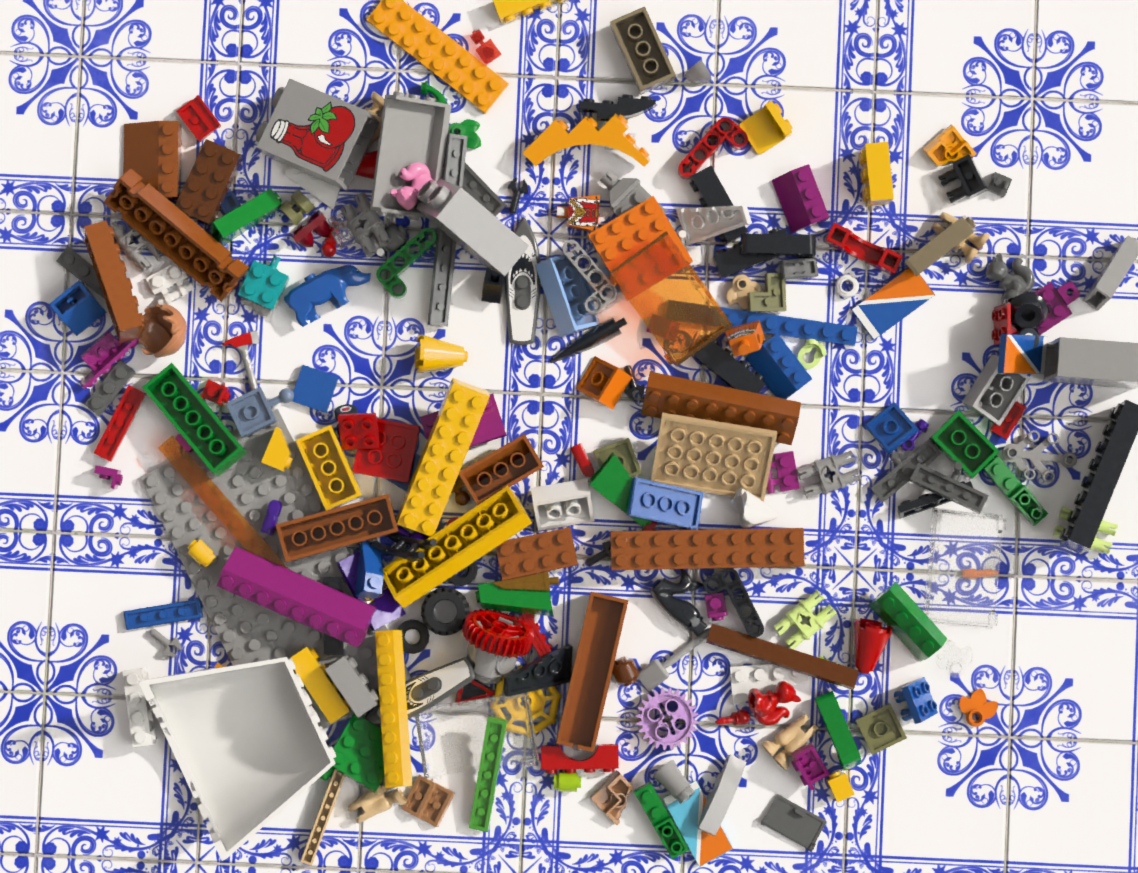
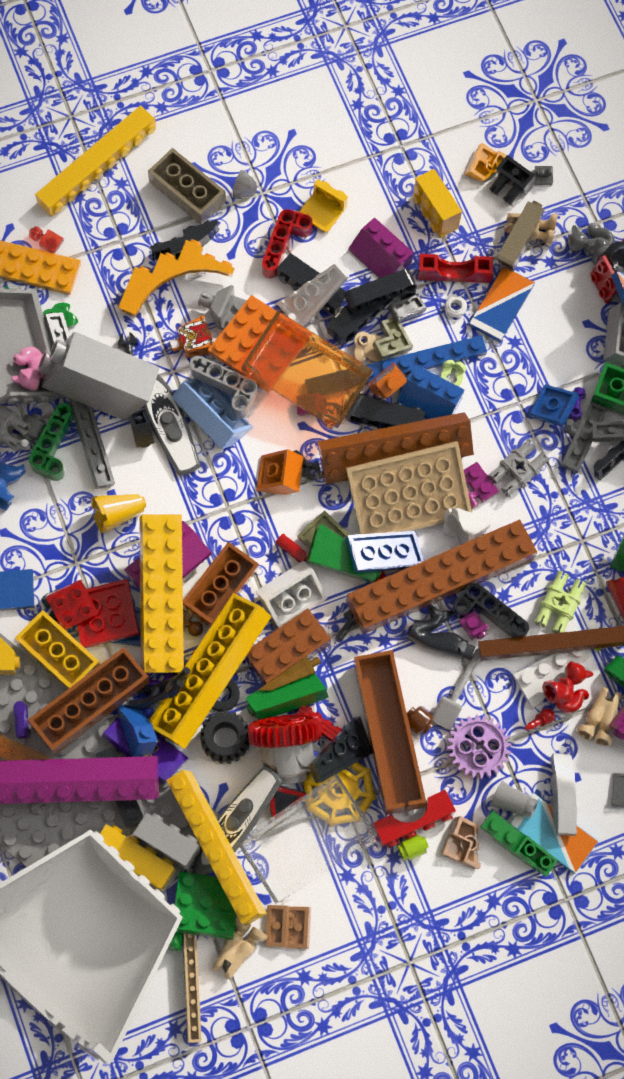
camera: 30 degrees left, 15 degrees down
(423, 632) = (215, 770): black tyre -> none
(488, 773) = (335, 872): bright green plate -> none
(592, 339) = (254, 438): black piece -> none

